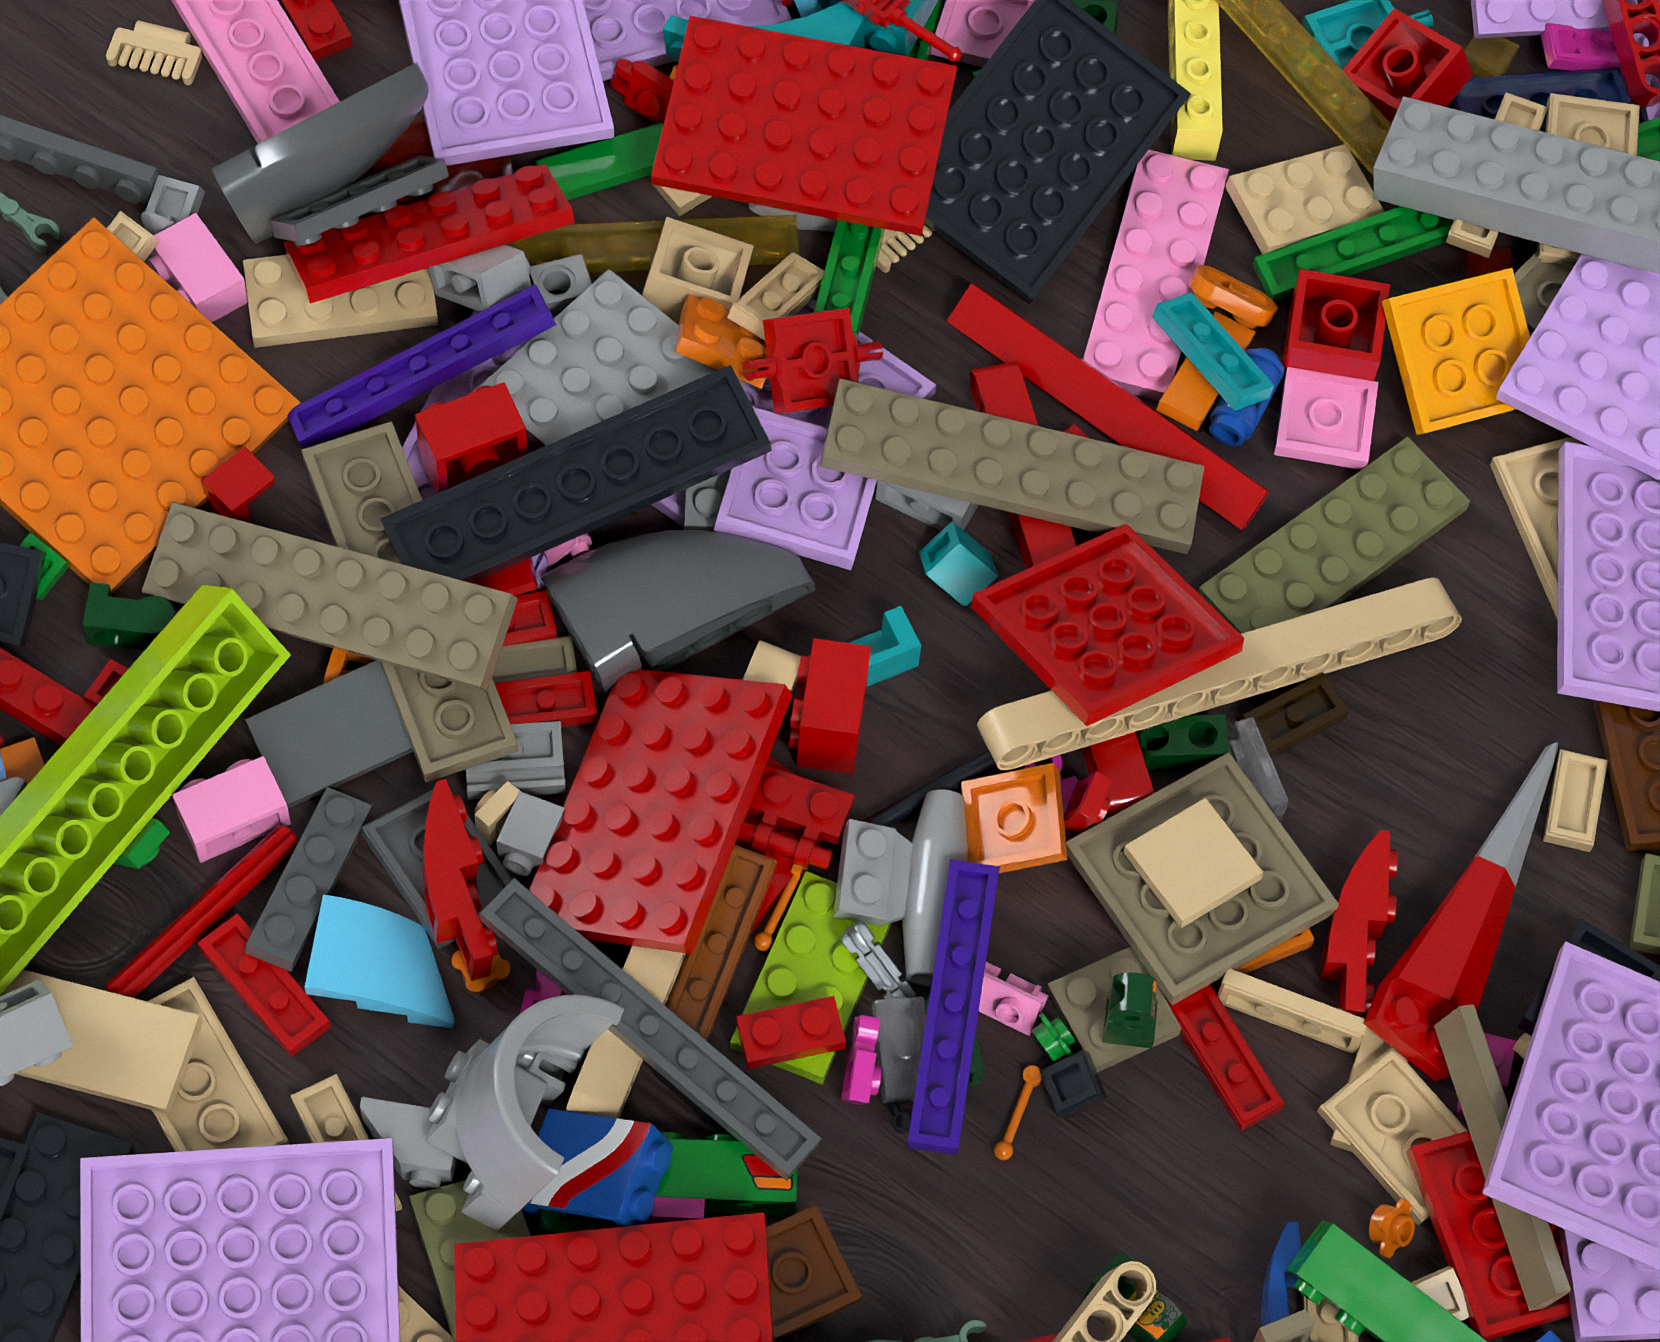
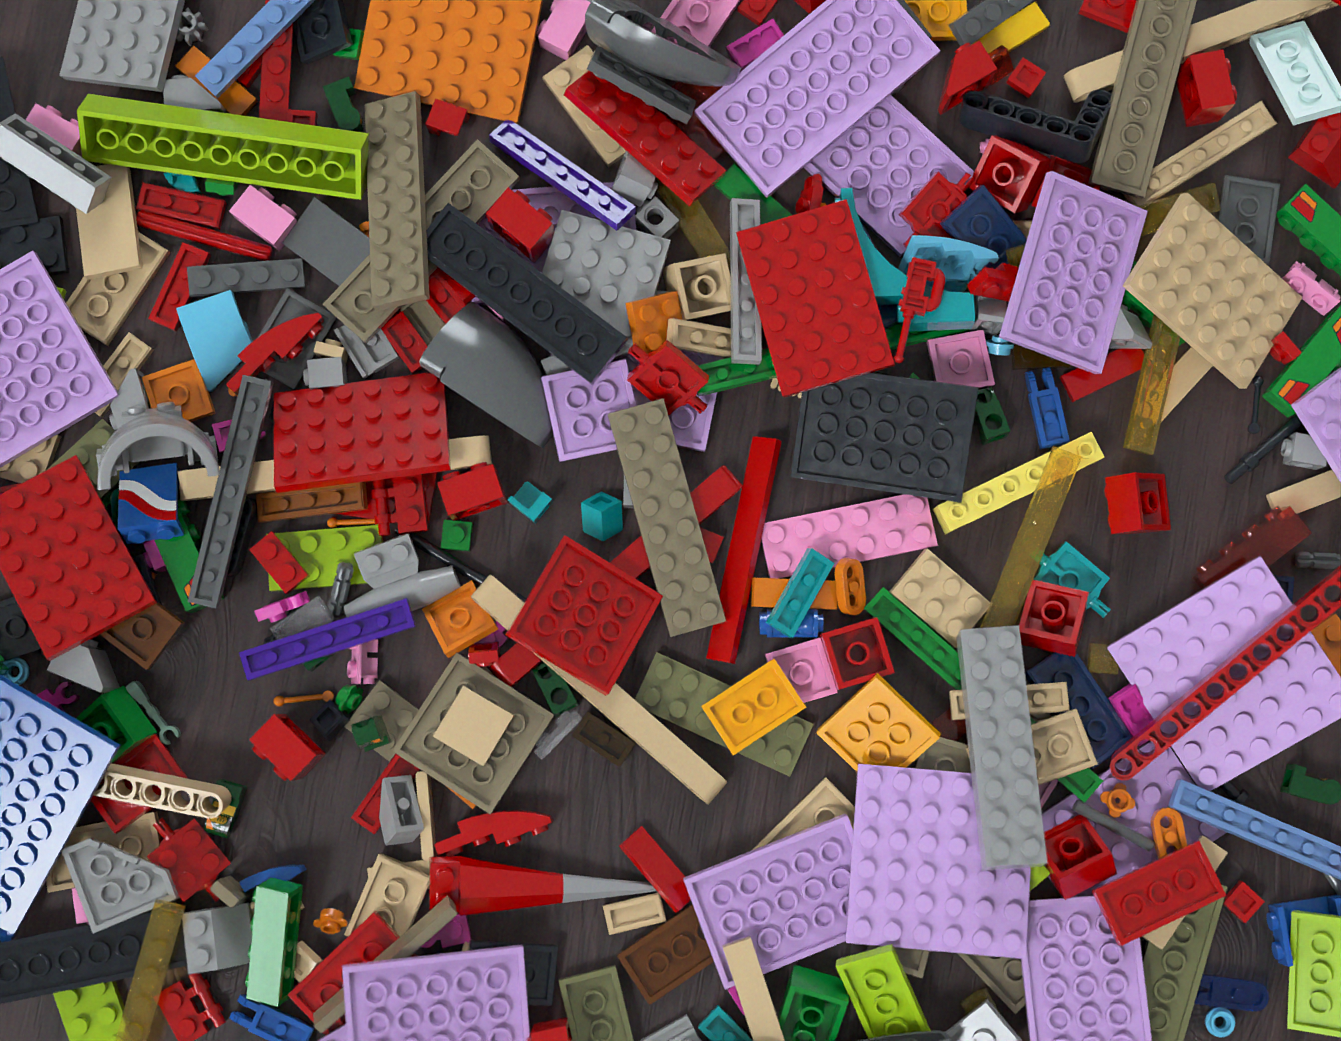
camera: 65 degrees right, 20 degrees up
(97, 908) = (183, 182): none -> teal tile
(133, 925) = (181, 205): none -> red tile
(379, 47) = (754, 44): none -> dark pink plate
(421, 1053) = (183, 387): none -> orange plate
(763, 227) = (745, 318): none -> light grey plate
(879, 776) = (456, 535): none -> green plate
(1091, 1150) = (286, 747): none -> red brick
(1271, 1039) = (399, 810): none -> light grey slope
(1348, 488) = (753, 706): none -> light orange plate
(1525, 733) = (657, 868): none -> red tile

